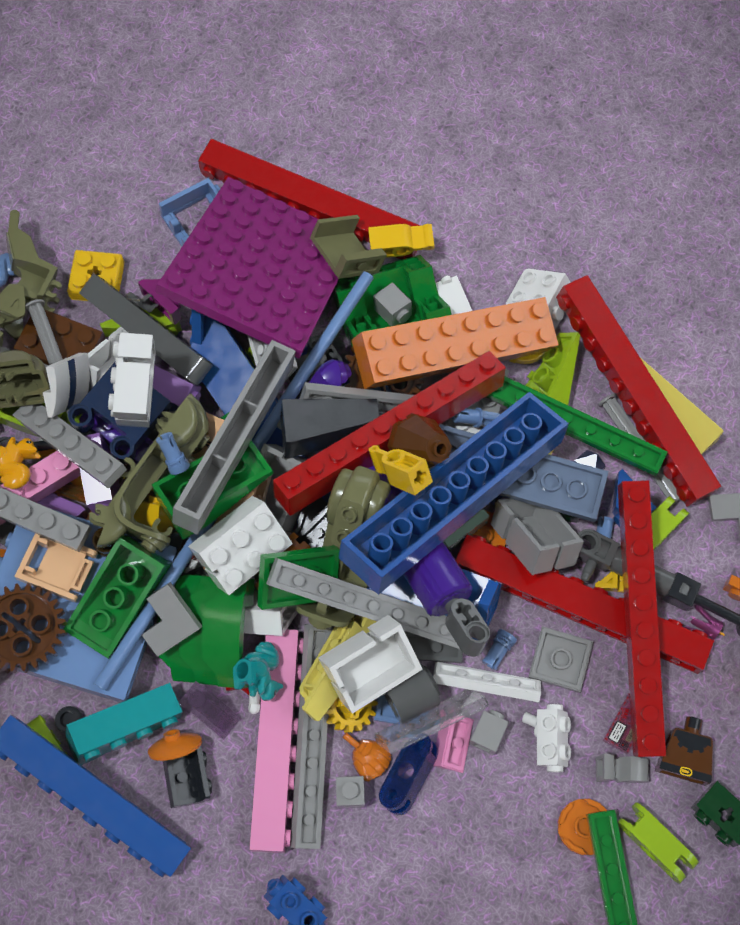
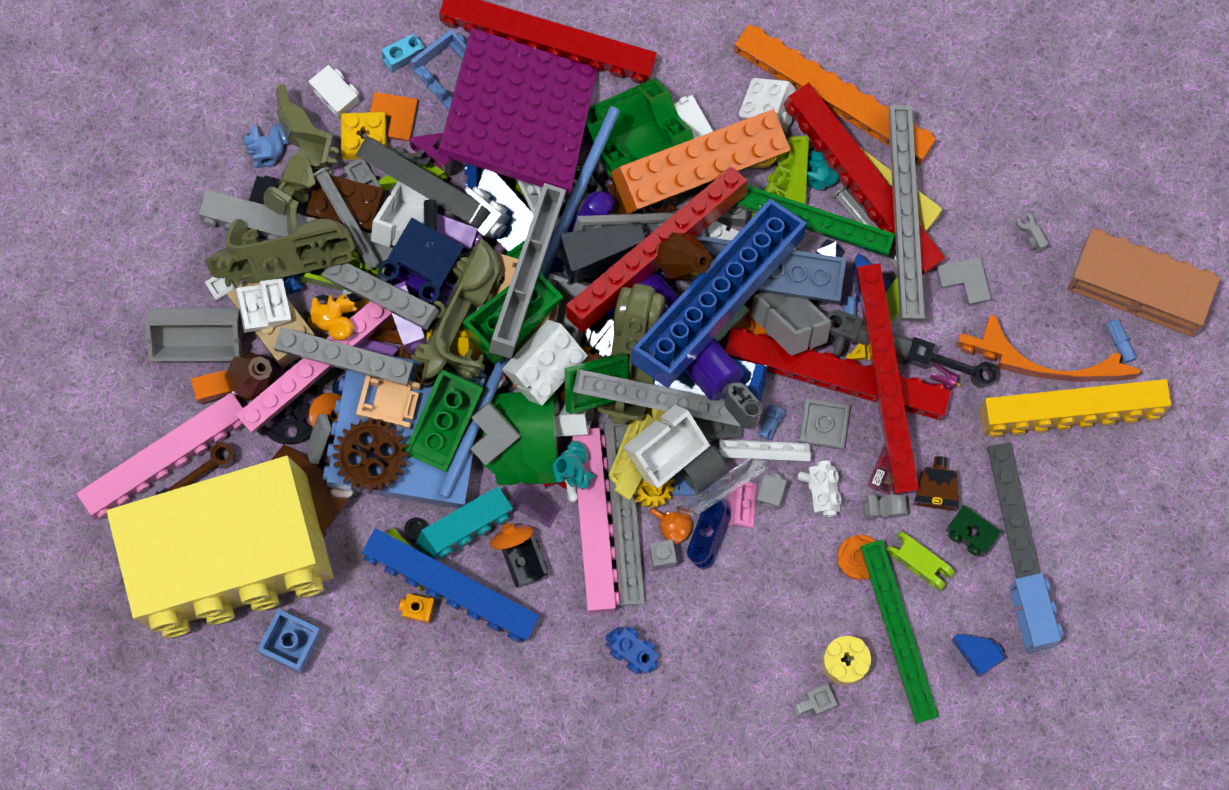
camera: 10 degrees left, 5 degrees up
(59, 821) = (422, 615): none -> light orange brick
(67, 383) = (370, 242): white slope -> none
(73, 227) = (334, 91): none -> white brick
(85, 313) = (360, 172): none -> light grey slope
(132, 379) = (432, 234): white piece -> none
(139, 254) = (400, 110): none -> orange tile
(147, 197) = (401, 52): none -> medium azure leg
(174, 457) = (478, 296): medium blue pin -> none
(215, 376) = (495, 222): none -> white bracket
(342, 248) = (588, 85): olive panel -> none
(392, 305) = (638, 130): light grey brick -> none
(401, 239) = (637, 69): yellow piece -> none
(402, 469) = (672, 281): yellow piece -> none
(475, 417) = (727, 225): medium blue axle -> none
(587, 376) = (821, 174): none -> teal animal
(626, 303) = (839, 96): none -> orange brick
(682, 433) = (906, 213): none -> light grey plate

